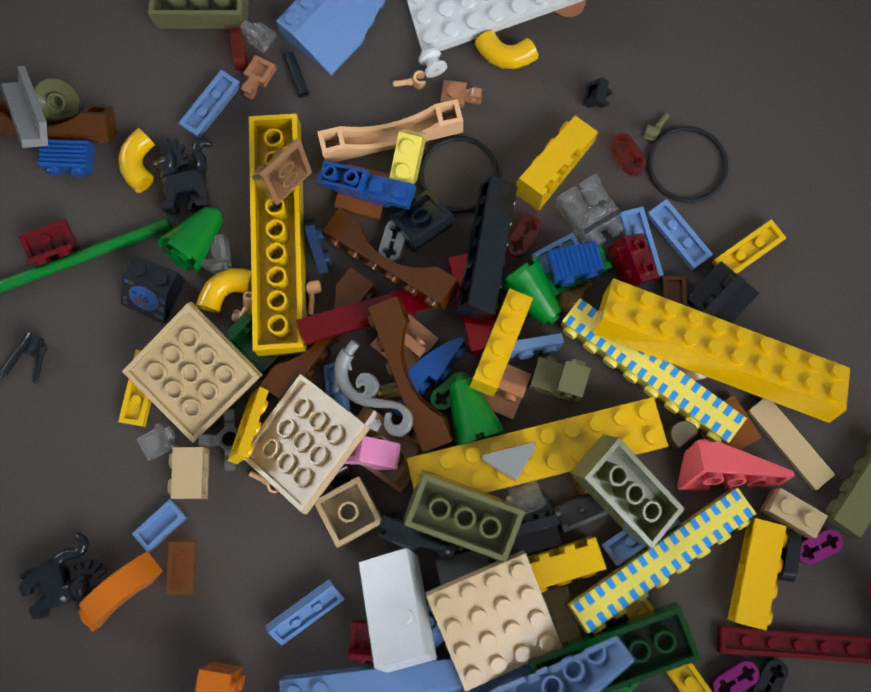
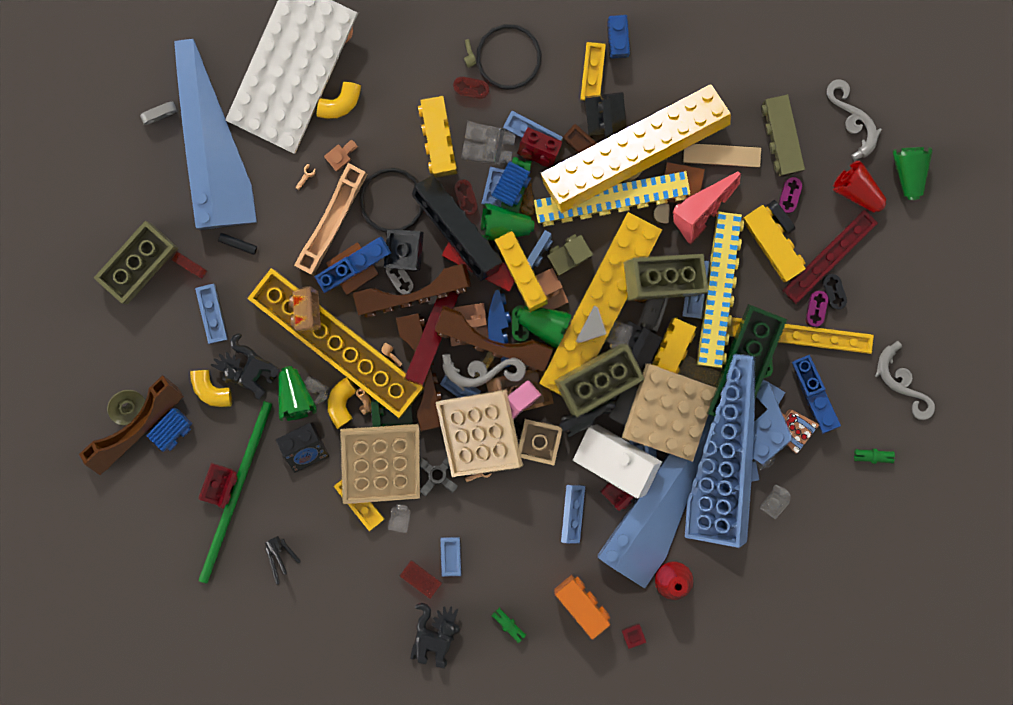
camera: 50 degrees left, 10 degrees up
(25, 111) = (120, 430): light grey fence -> none
(111, 515) = (420, 579): none -> clear red plate
(118, 589) = (469, 608): orange arch -> none
(135, 647) = (508, 625): none -> green pin
(181, 568) = (486, 563): clear orange plate -> none
(189, 473) = (436, 515): tan brick -> none
(249, 426) = (440, 456): yellow plate -> none
(257, 73) = (217, 267): nougat plate -> none
(258, 35) = (192, 244): clear bracket -> none
(315, 237) = (359, 322): dark blue wing -> none
(408, 156) = (357, 224): light yellow brick -> none
(430, 58) = (302, 151): white wheel -> none
(596, 93) = (415, 71): black tile -> none
(679, 234) = (547, 104): medium blue plate -> none
(793, 513) = (760, 192): tan brick -> none
(804, 243) = (618, 36): none -> blue brick

